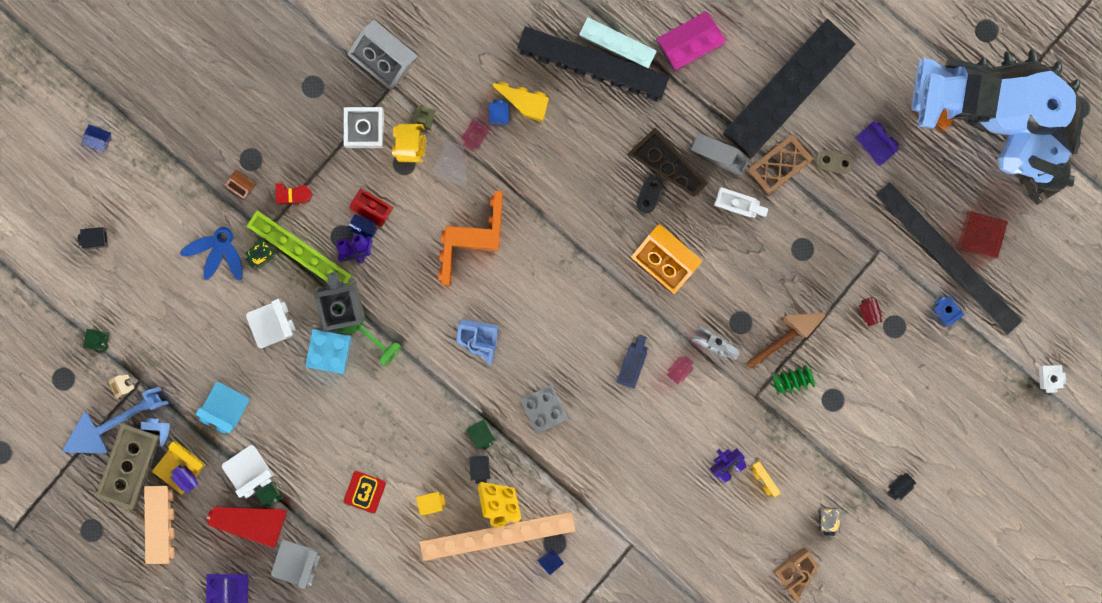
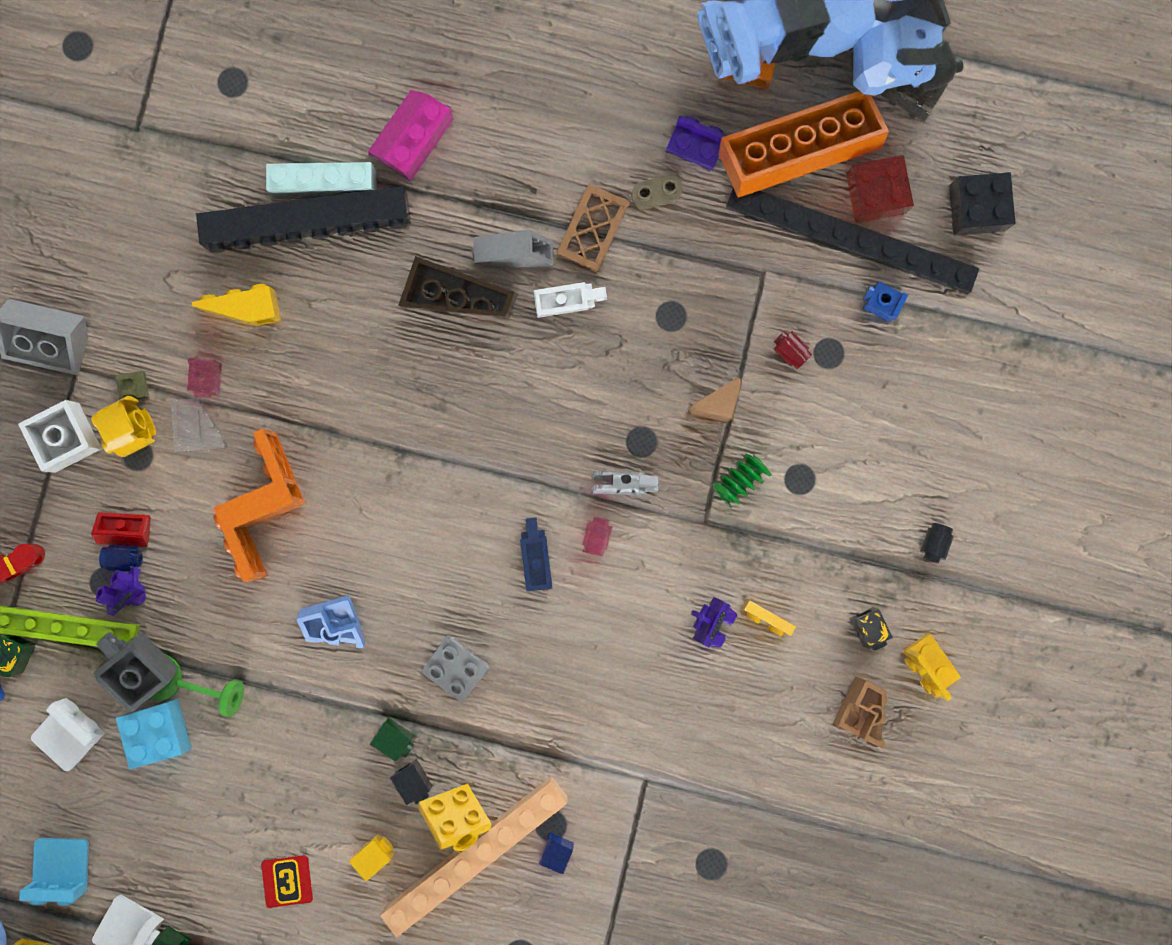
camera: 25 degrees left, 0 degrees up
(498, 113) = (218, 336): blue brick -> none
(649, 194) = (453, 342): black plate -> none
(666, 258) = (512, 409): light orange slope -> none
(772, 348) = (695, 455): dark orange bar -> none
(789, 88) = (557, 129): black brick -> none
(857, 564) = (932, 666): none -> yellow bracket
(945, 180) = (802, 142): none -> orange brick
(1045, 279) = (982, 203): none -> black brick
(1051, 378) = (1050, 319): white brick -> none

